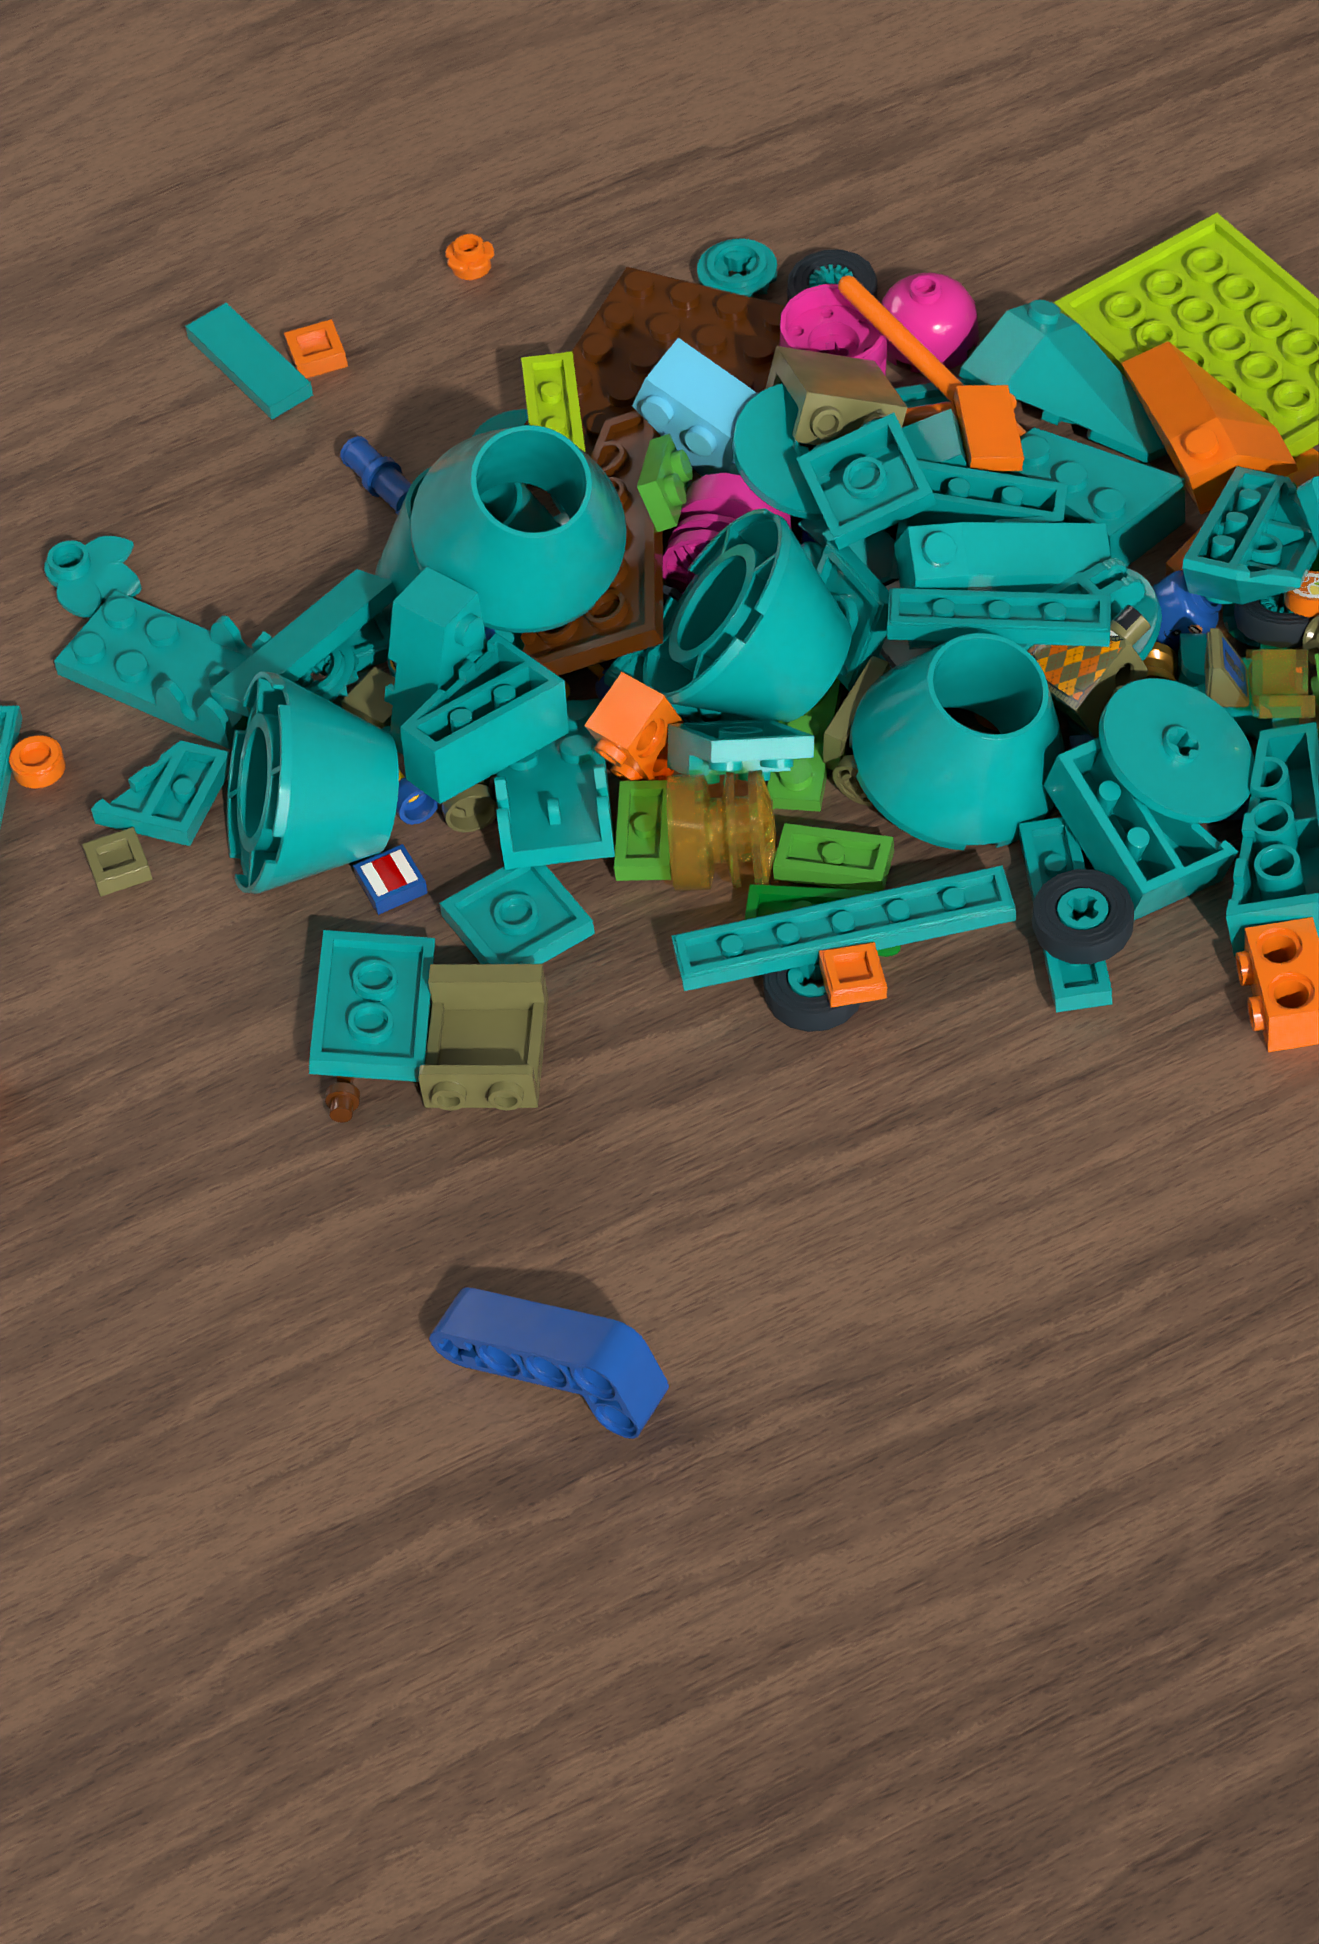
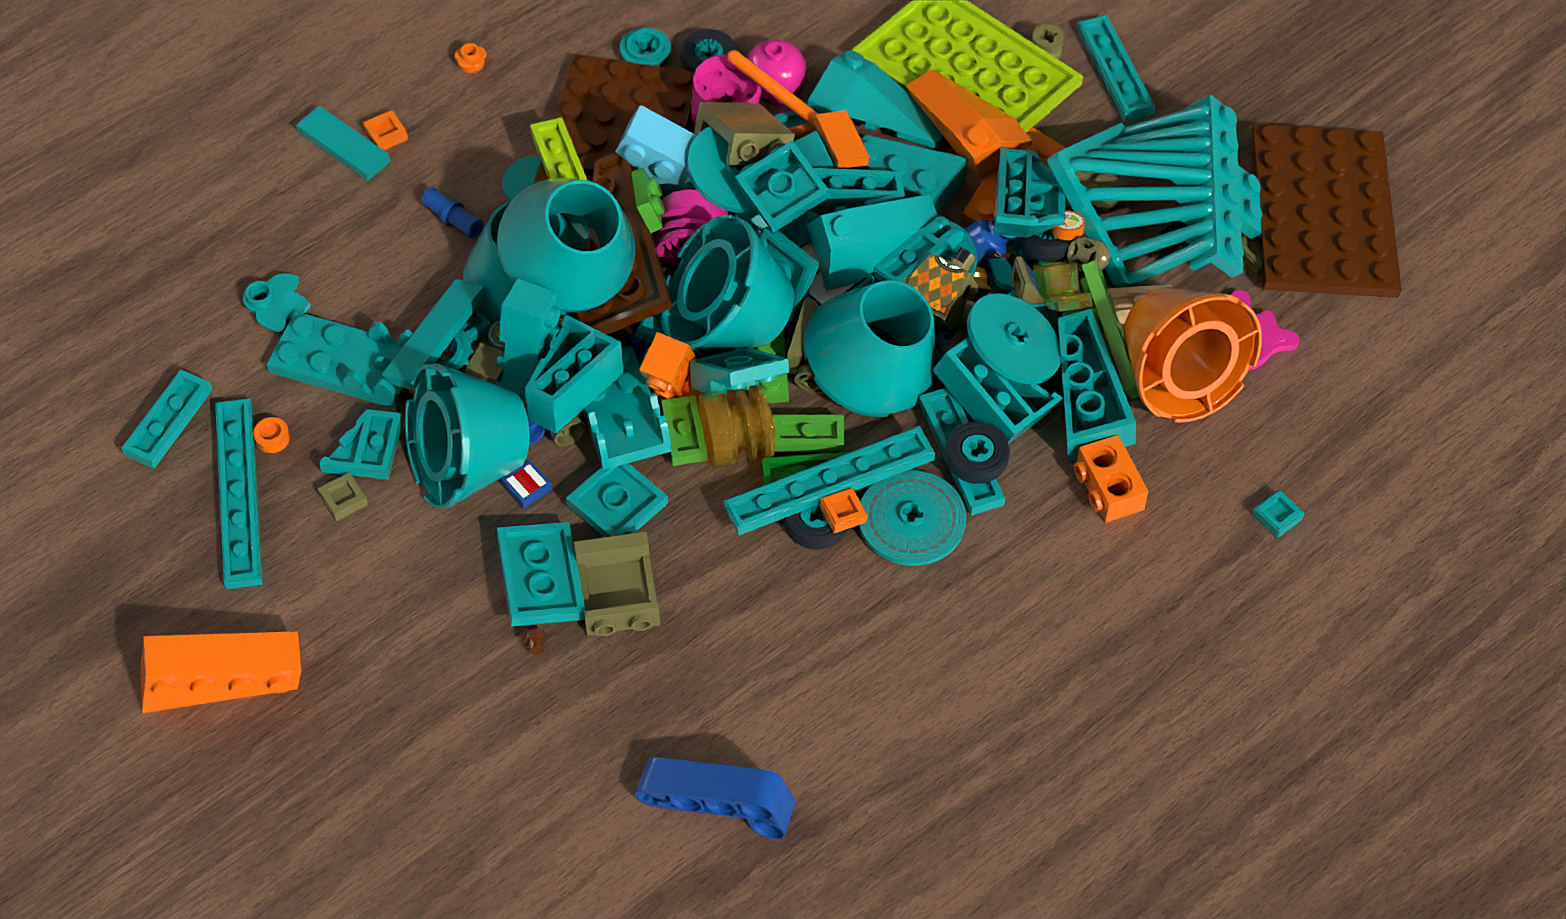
camera: 20 degrees left, 5 degrees up
(979, 1036) = (934, 531): none -> teal piece
(1012, 615) = (888, 264): teal tile -> none

